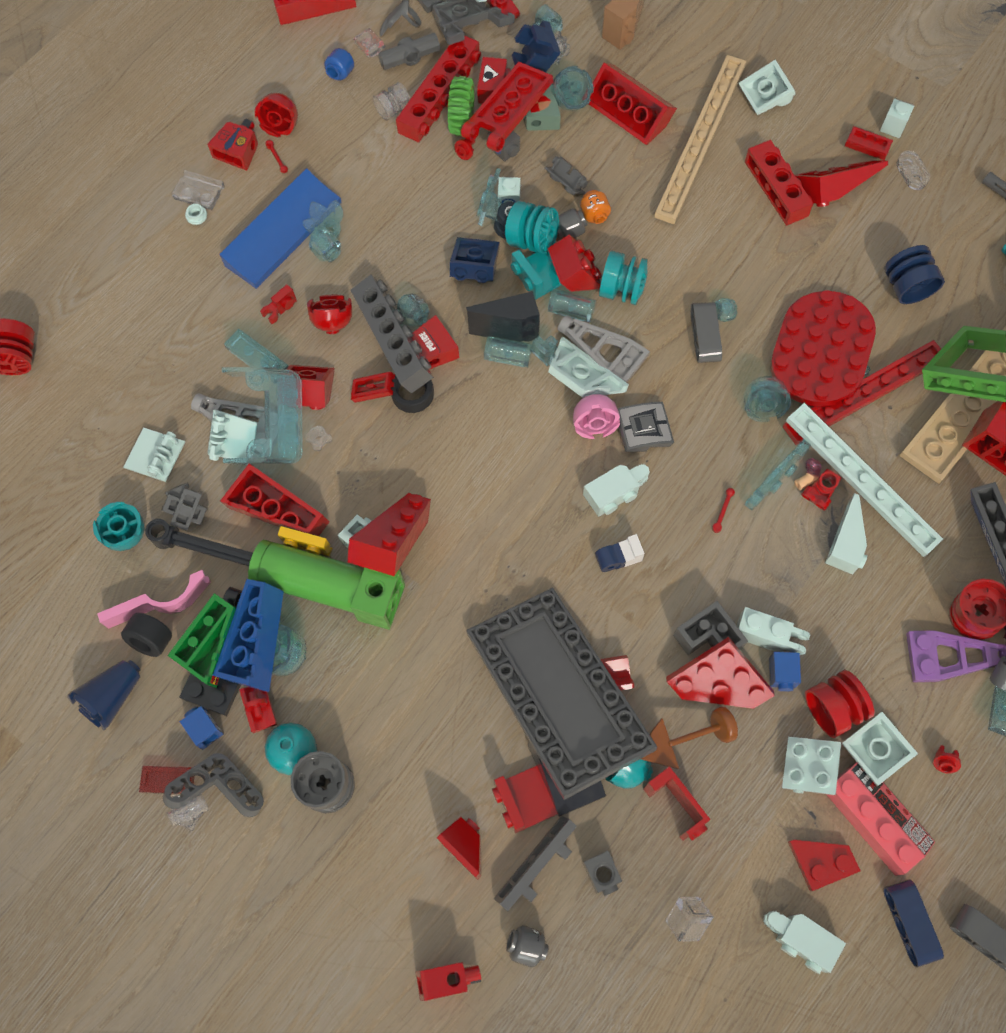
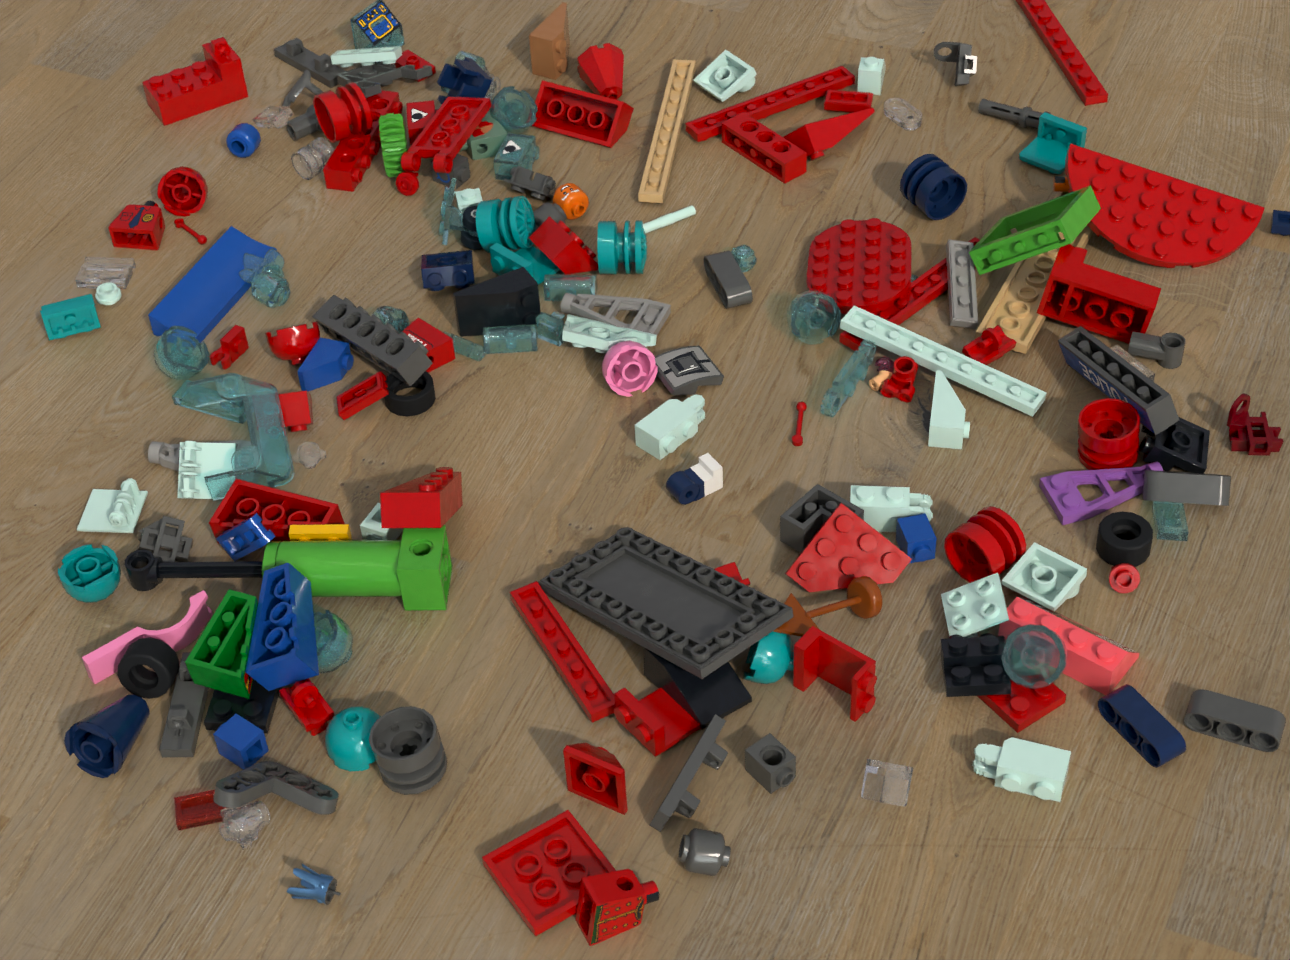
camera: 15 degrees left, 25 degrees down
(160, 232) = (70, 317): none -> teal bracket
(167, 682) = (184, 715): none -> dark grey hinge
(228, 887) = (318, 886): none -> flat silver piece
(237, 304) = (180, 353): none -> clear light blue cylinder
(245, 528) = (245, 537): none -> blue plate
(351, 342) = (325, 364): none -> blue slope
(406, 927) = (545, 870): none -> red plate
(423, 65) = (342, 112): none -> red wheel
(468, 349) = (467, 347): none -> clear light blue axle
(470, 706) = (564, 651): none -> red plate
(562, 139) = (514, 152): none -> clear light blue brick
(661, 59) = (602, 70): none -> red cone
(671, 246) = (669, 219): none -> light aqua piece
(794, 822) = (974, 666): none -> black plate
(800, 128) = (772, 102): none -> red plate
(845, 842) = (1034, 656): none -> clear light blue cylinder
(906, 393) = (961, 284): none -> light grey tile
(908, 475) = (989, 346): none -> red hips
(971, 710) = (1124, 539): none -> black tyre
(987, 127) = (962, 57): none -> dark grey piece

